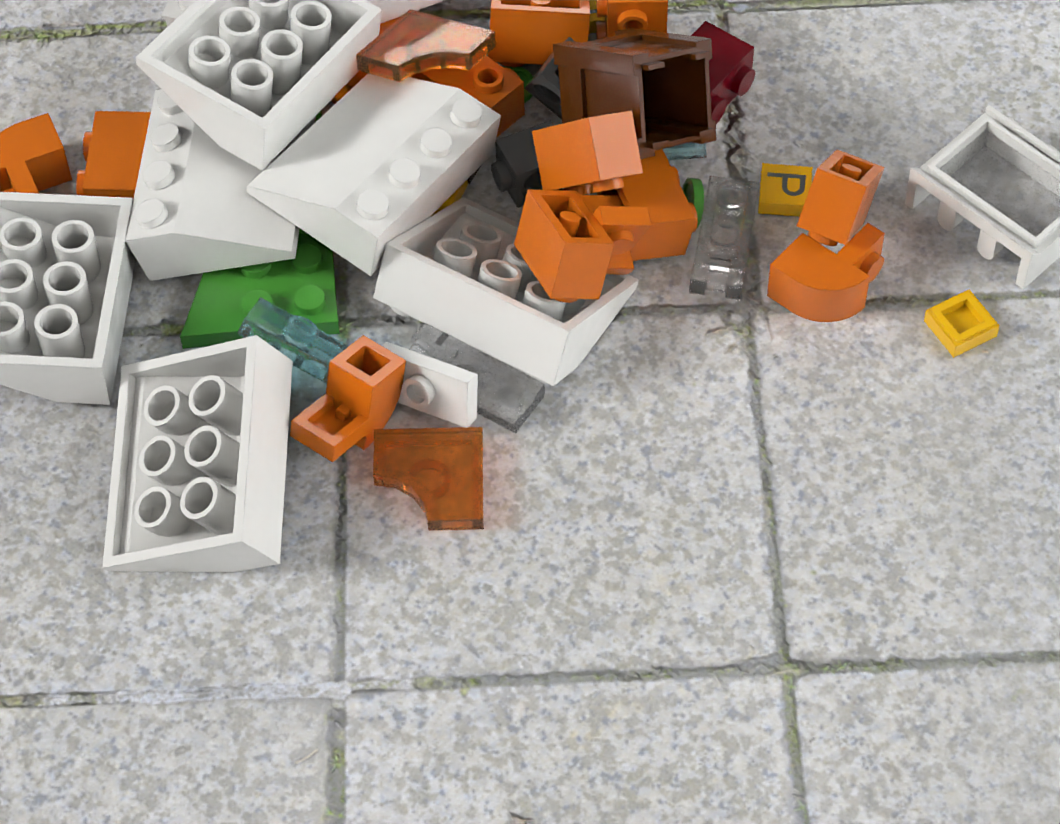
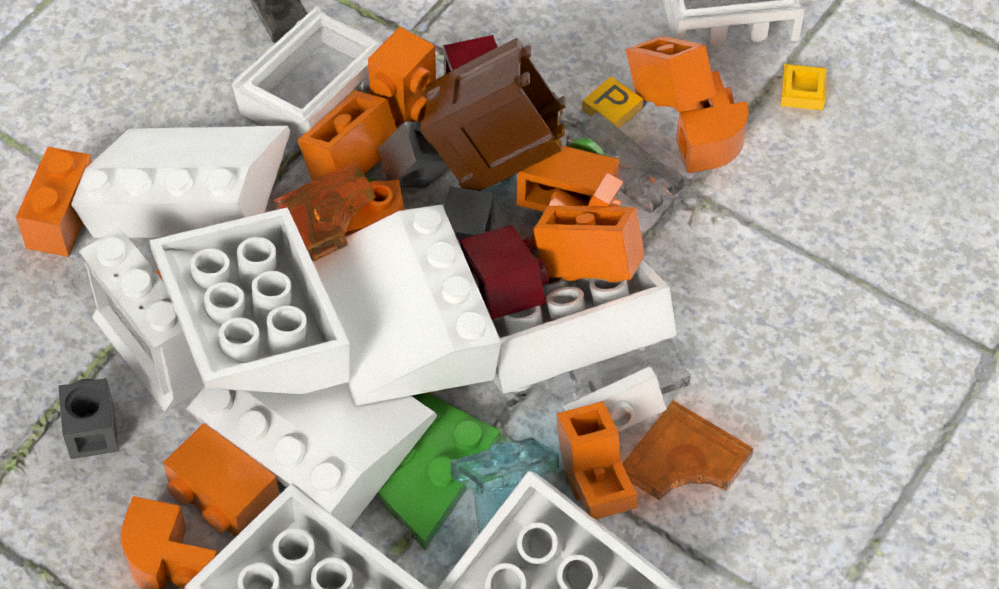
camera: 55 degrees left, 0 degrees up
(109, 44) = (93, 433): none -> dark grey brick
(481, 210) = (505, 271): none -> dark red brick
(588, 153) = (525, 176): orange brick -> none

